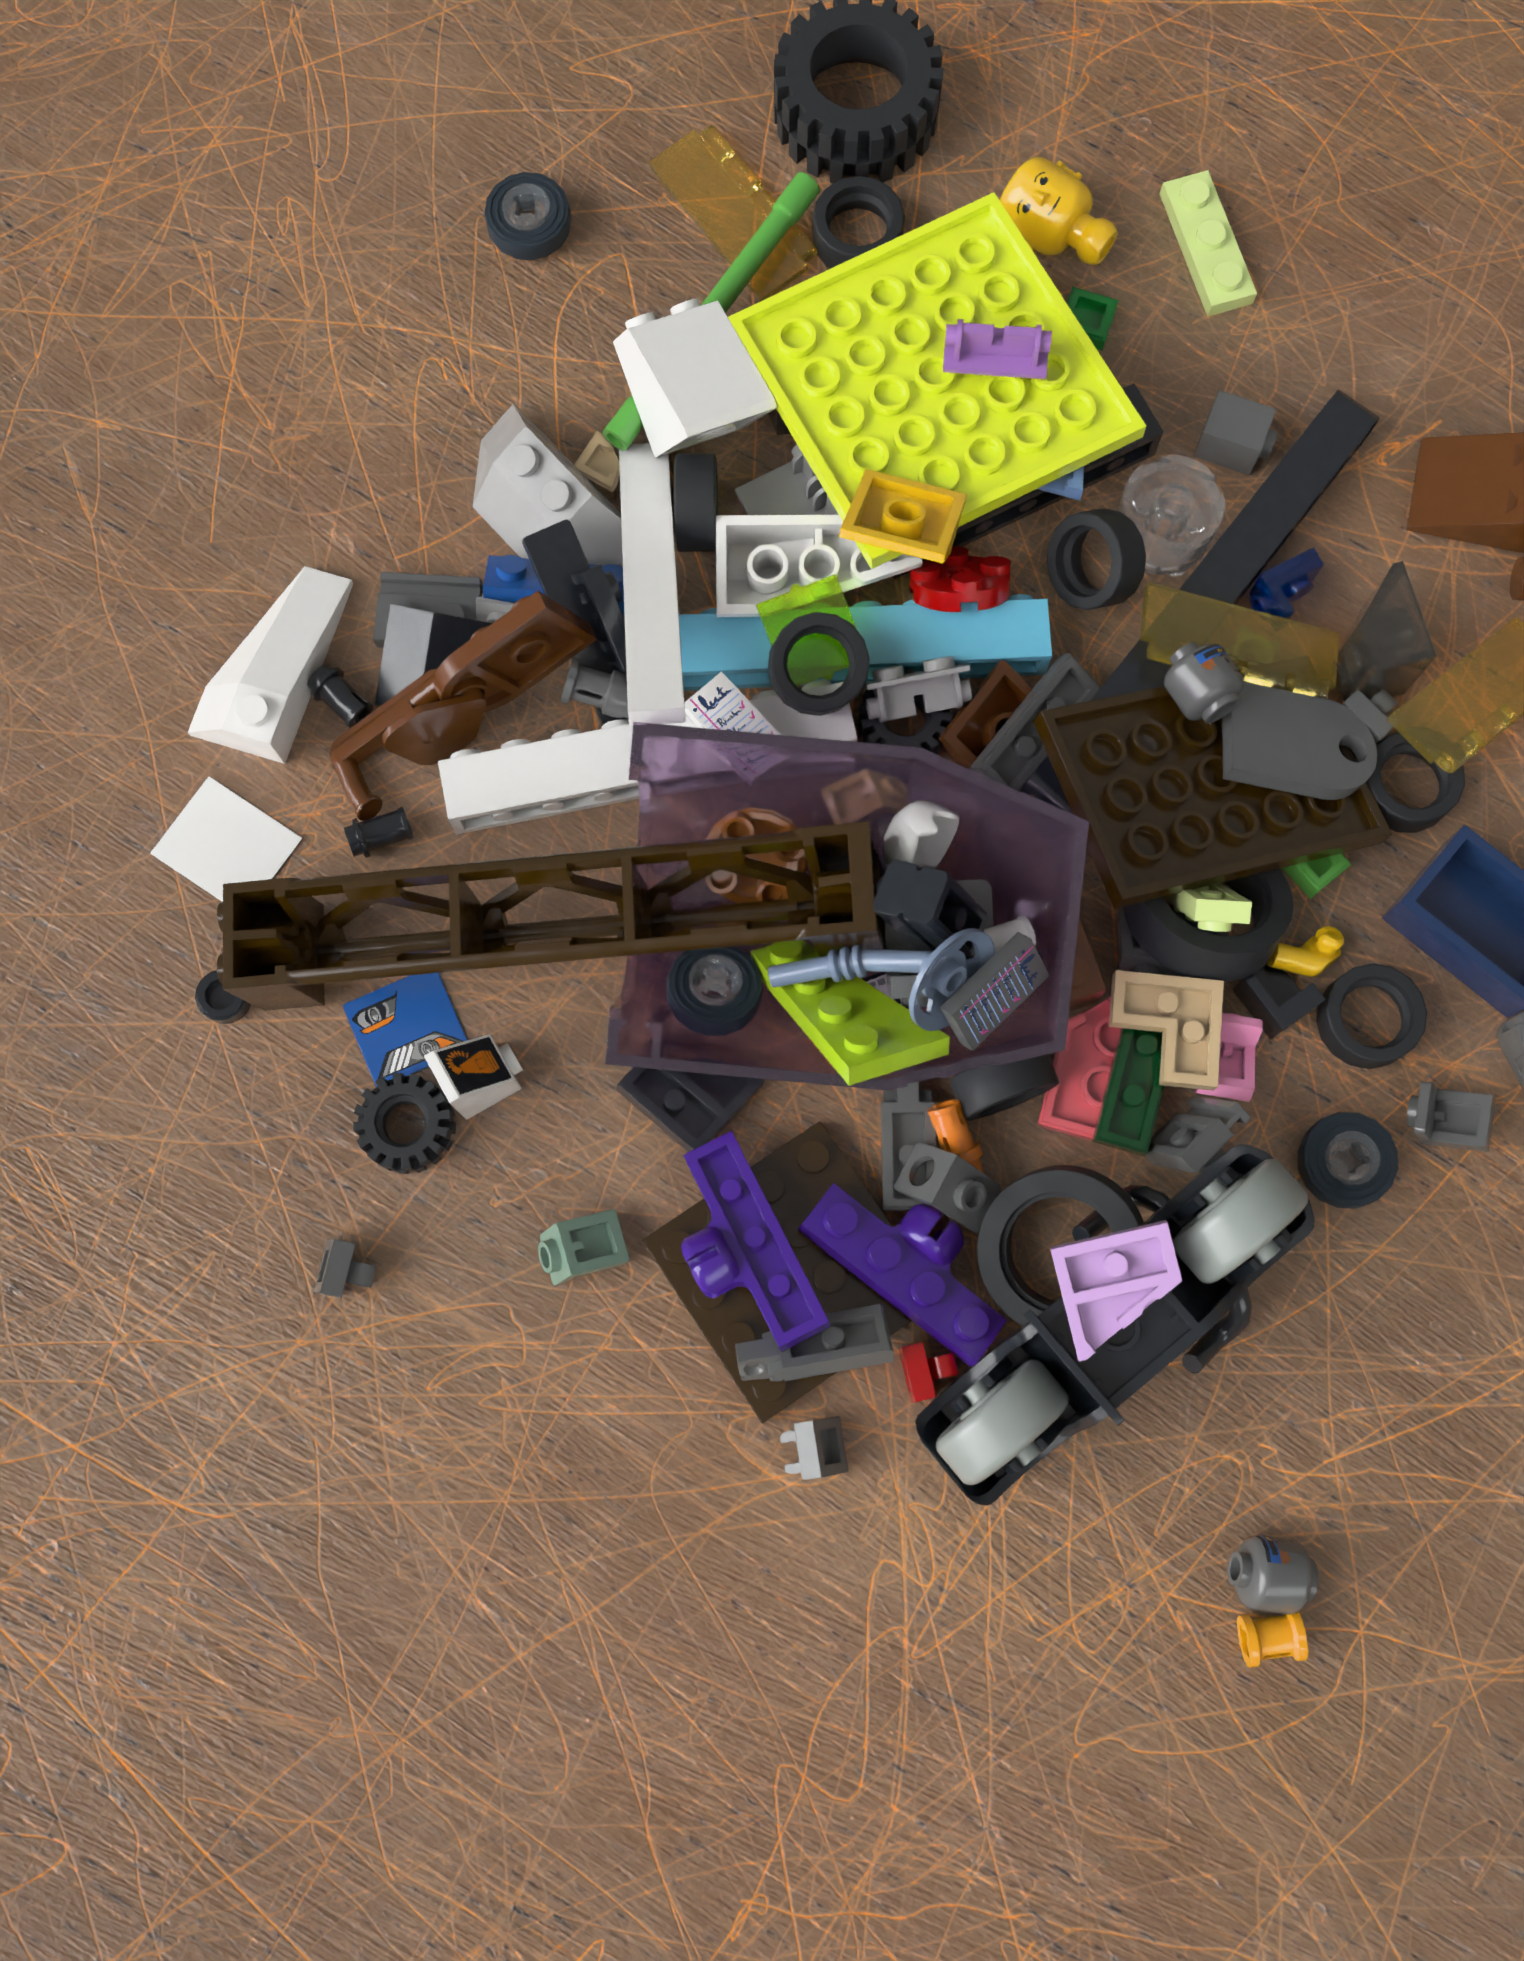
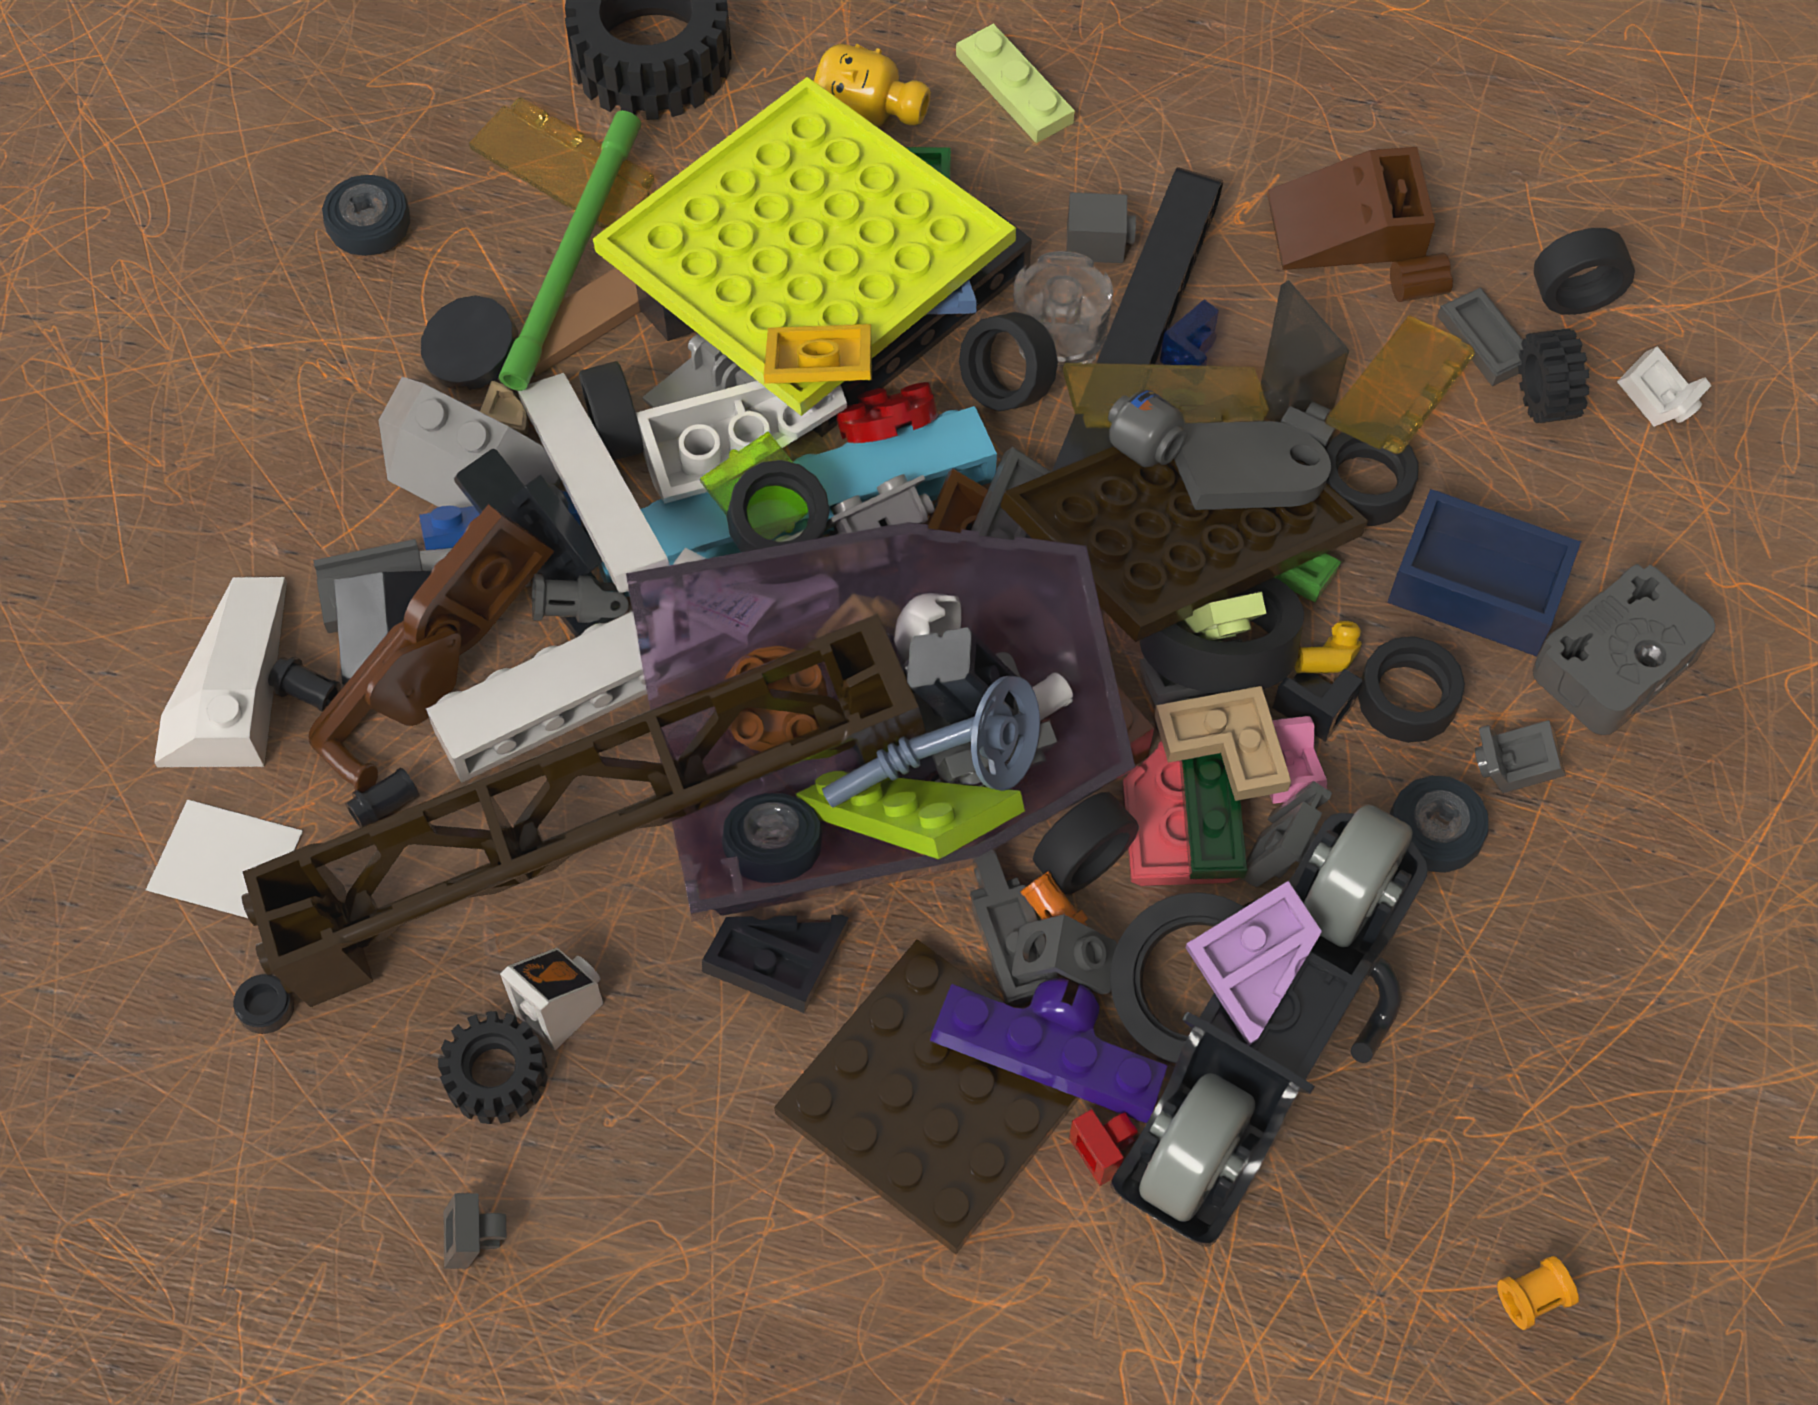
camera: 20 degrees left, 15 degrees down
(403, 1024) = (459, 976): blue sticker -> none
(582, 1246) = (714, 1131): sand green bracket -> none
(583, 384) = (468, 342): none -> black tile
(690, 376) = (573, 303): white slope -> none
(748, 1245) = (886, 1067): dark purple plate -> none
(819, 1448) = (1023, 1251): dark grey tile -> none
(851, 194) = (676, 120): black tyre -> none
(853, 1341) = (987, 1144): dark grey hinge -> none
(995, 991) = (1049, 737): dark grey tile -> none
(996, 351) = (841, 201): medium lavender hinge -> none
(1273, 1574) = (1515, 1229): dark grey head -> none

